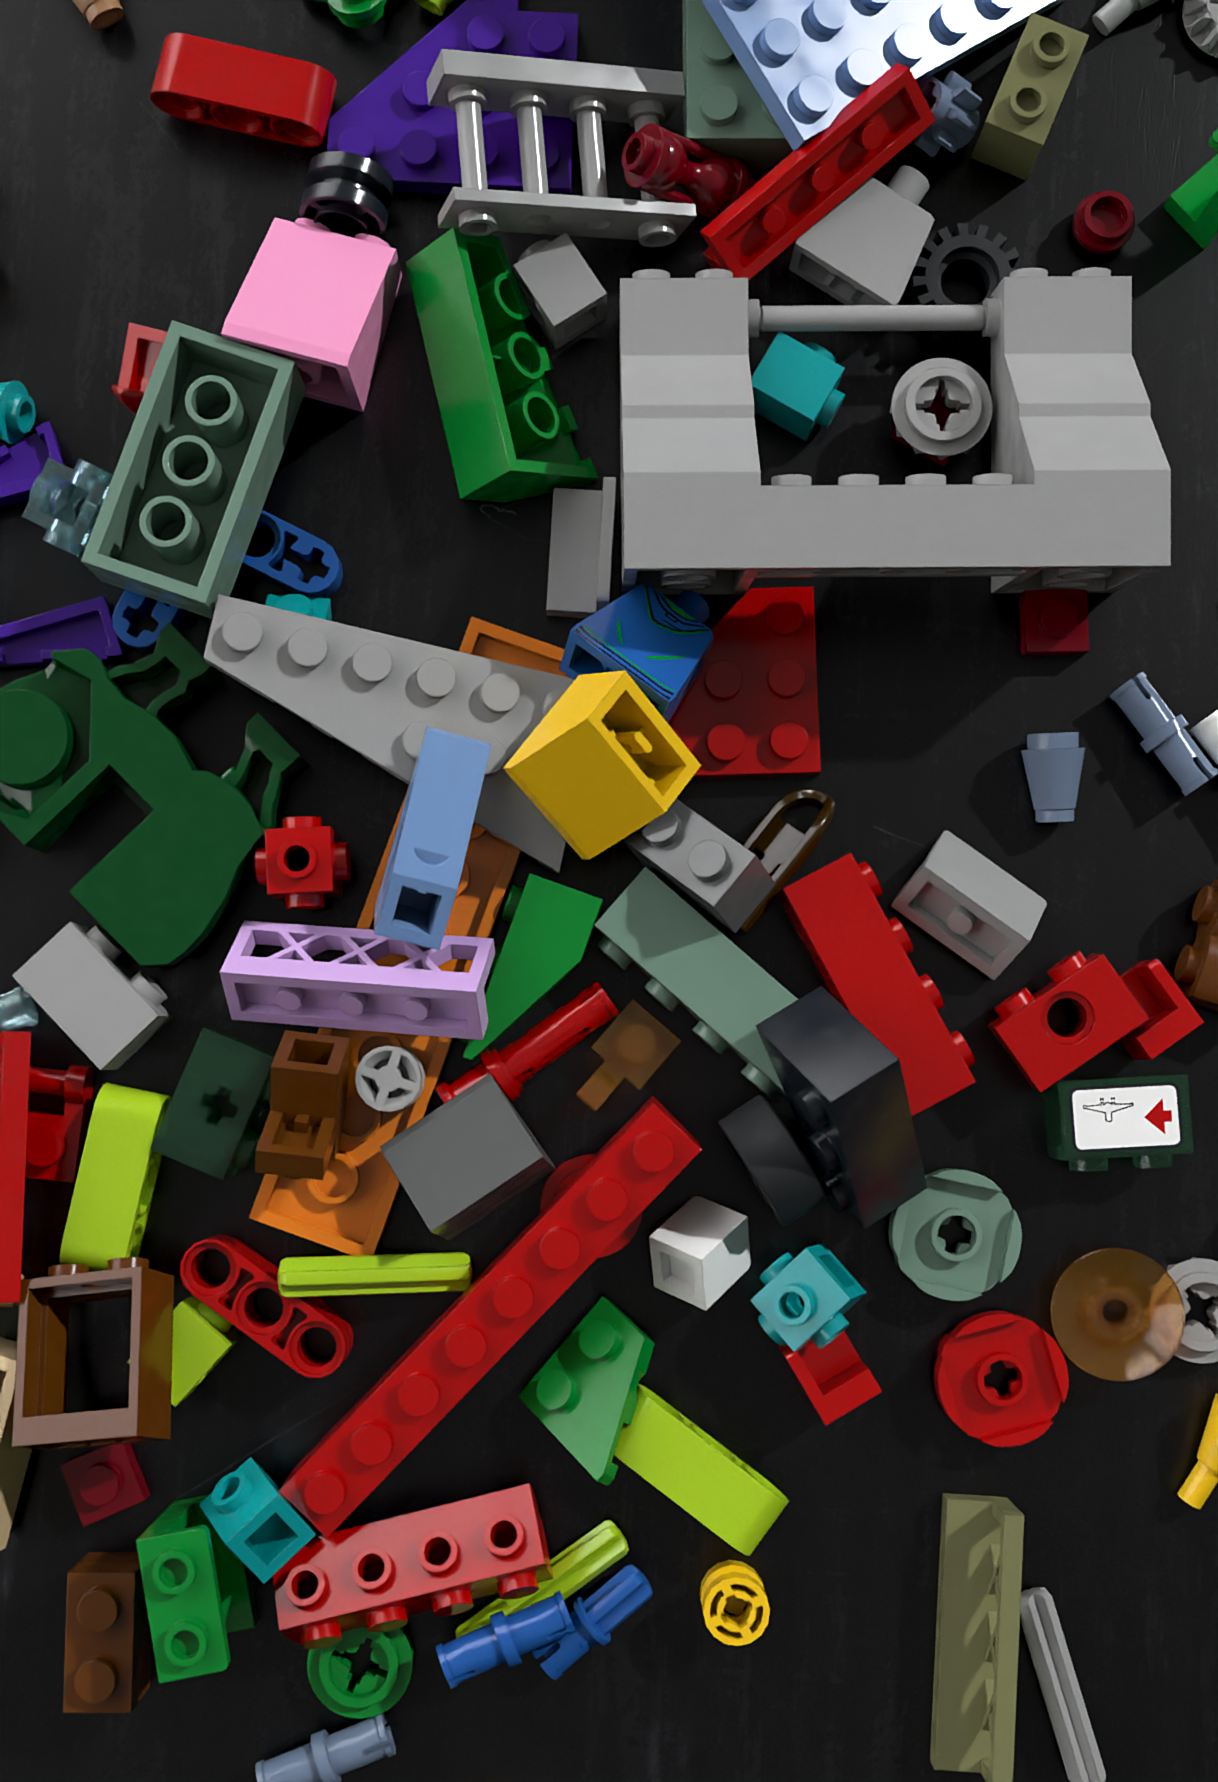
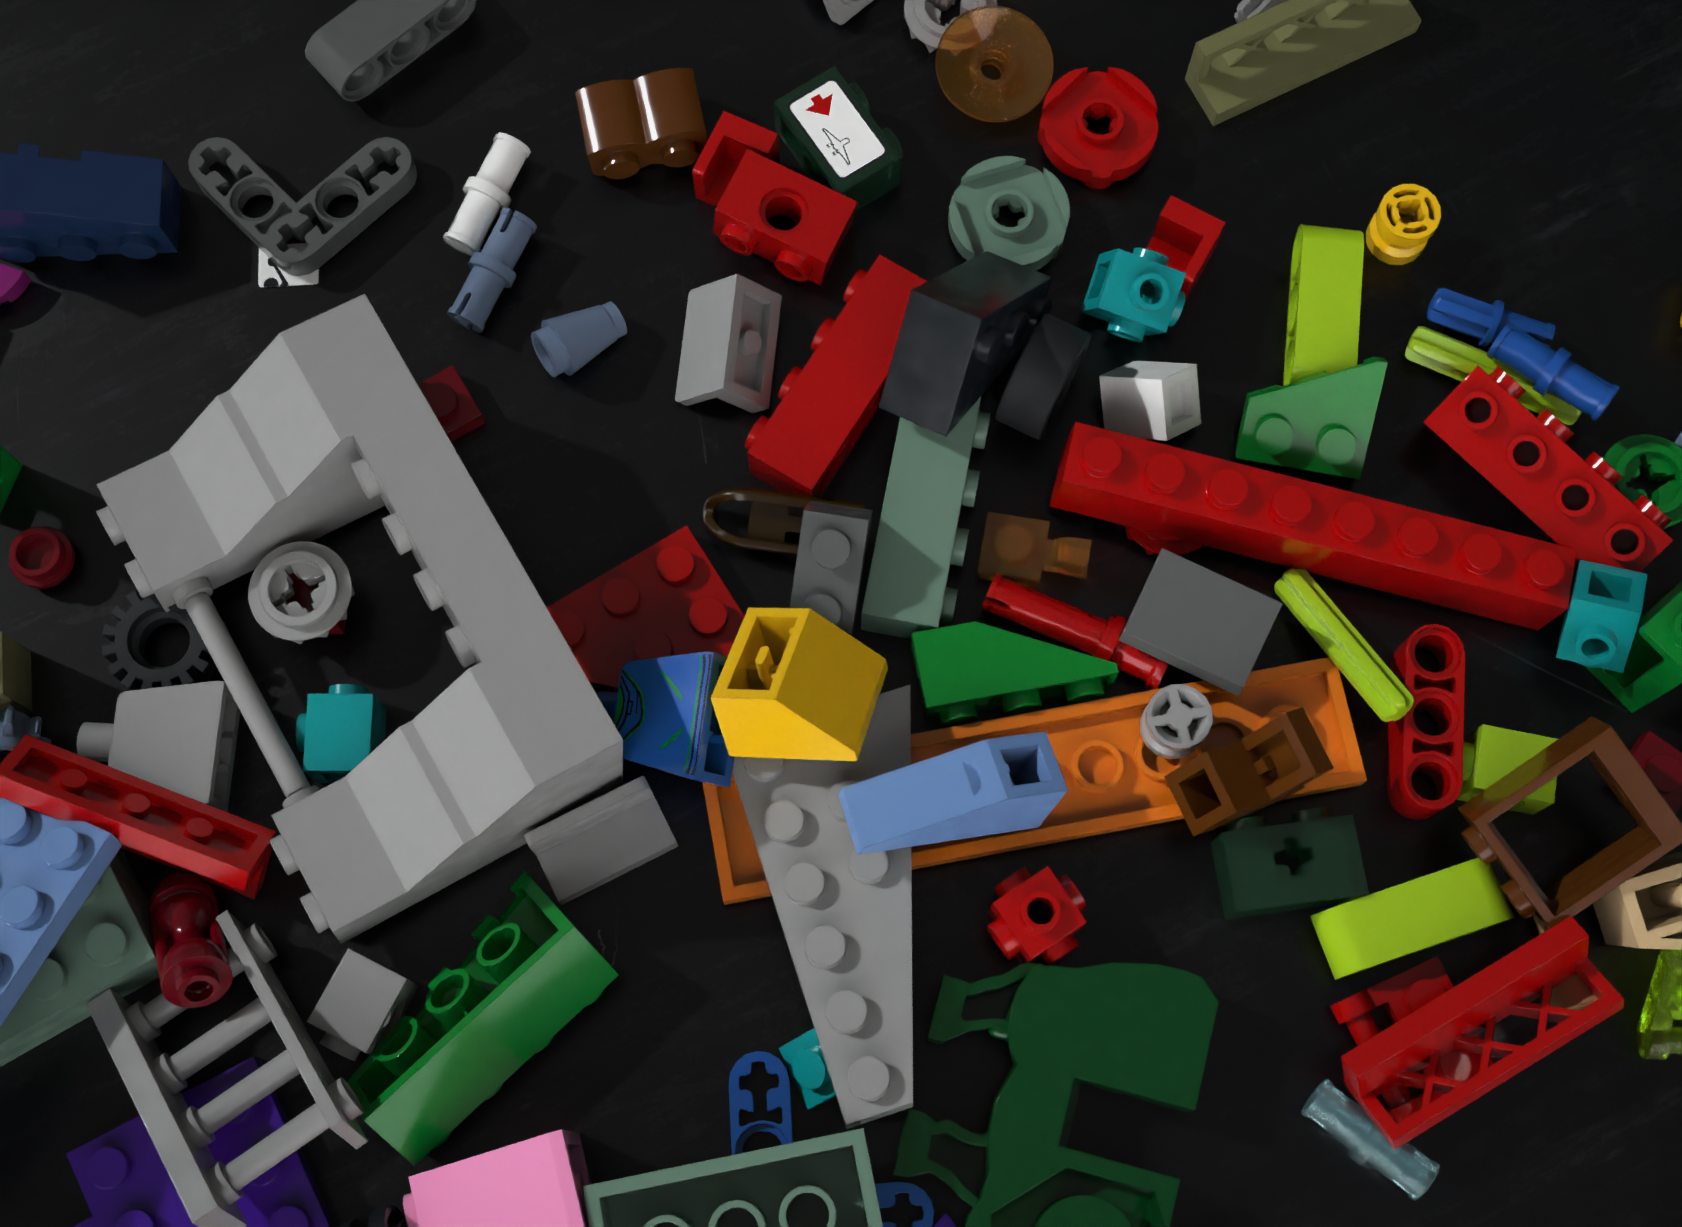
camera: 115 degrees left, 10 degrees down
(94, 994) = (1267, 1037): light grey brick -> none
(352, 988) = (1128, 799): lavender fence -> none

